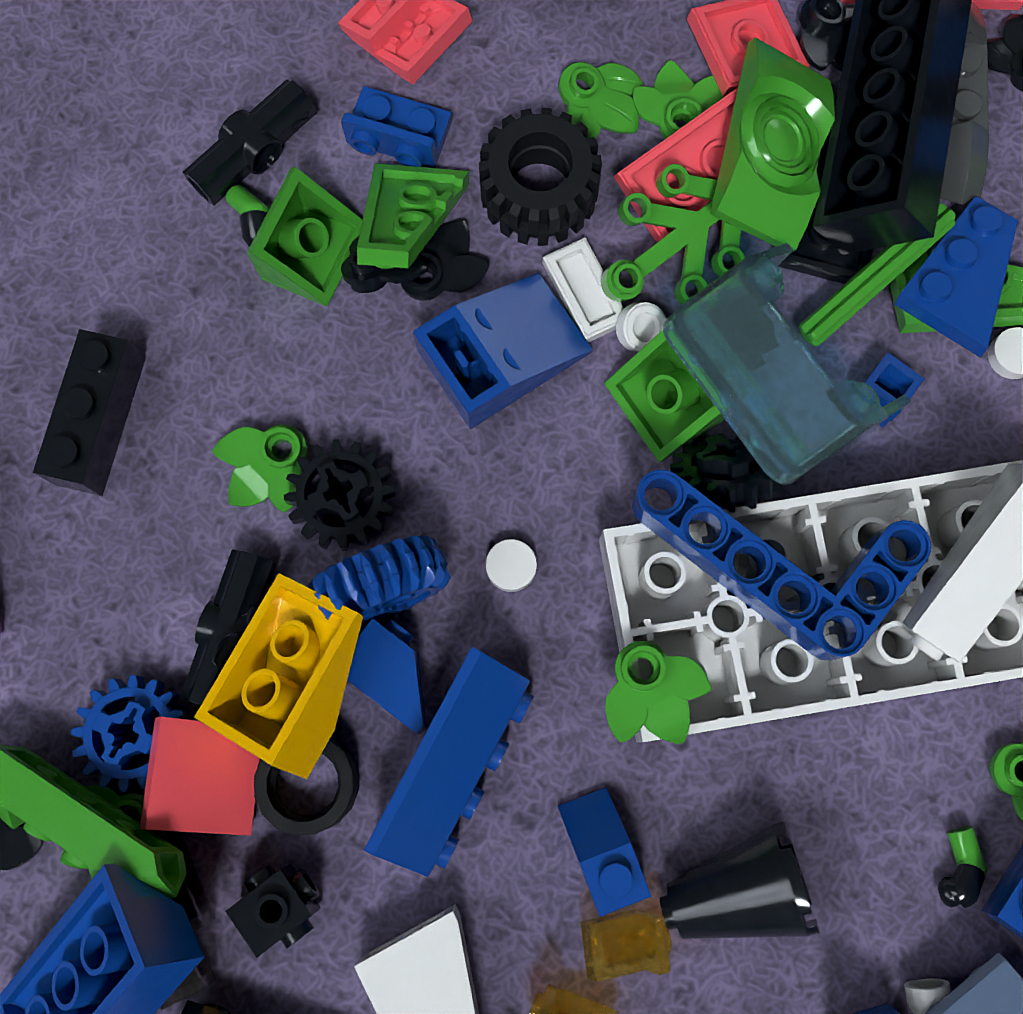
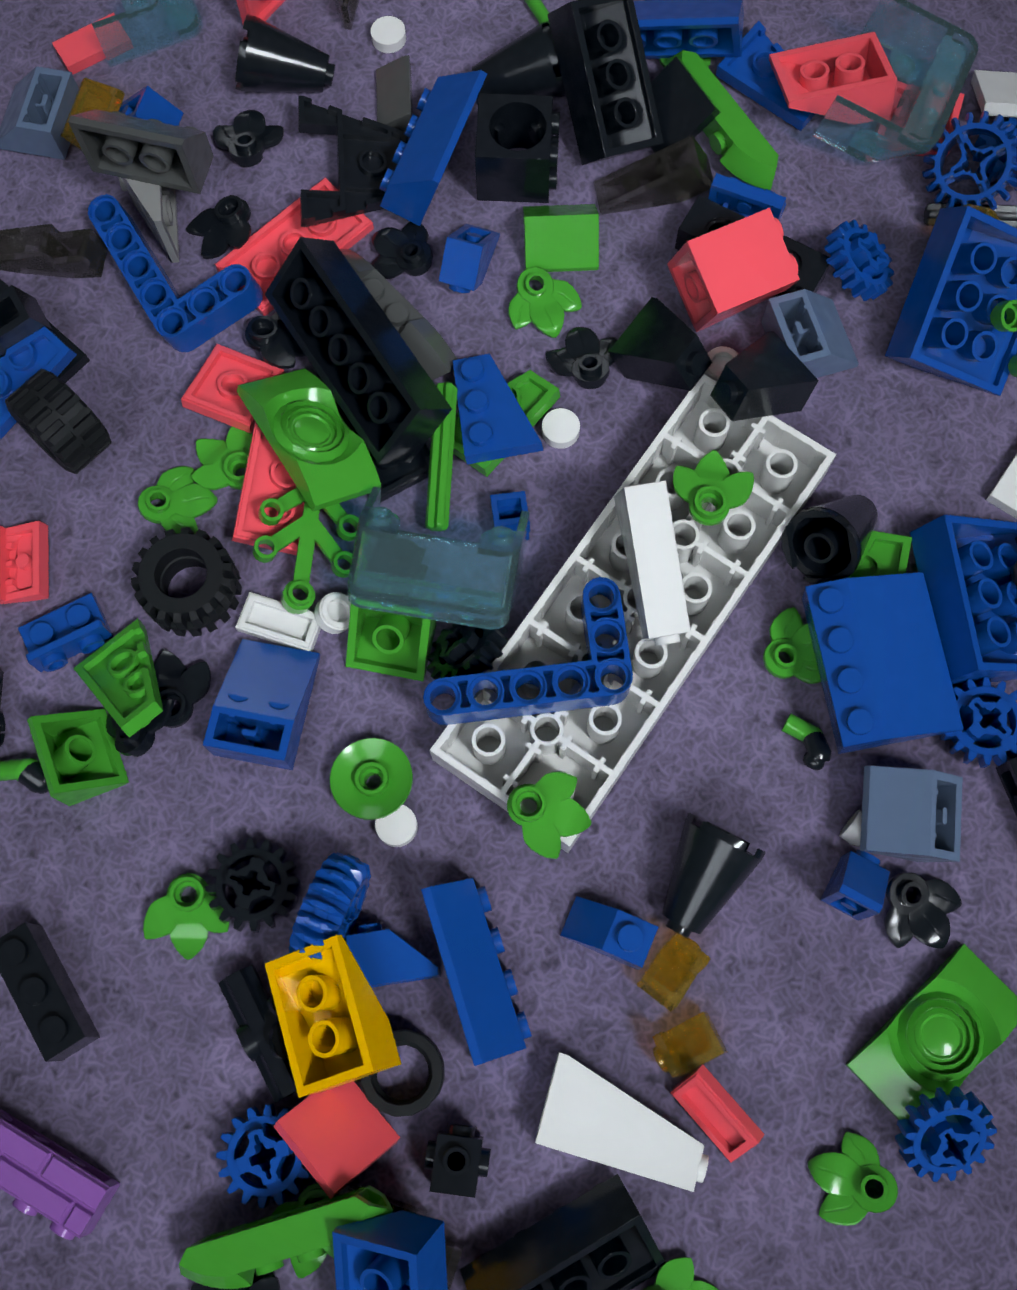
camera: 45 degrees left, 5 degrees down
(536, 480) = (357, 764): none -> bright green dish

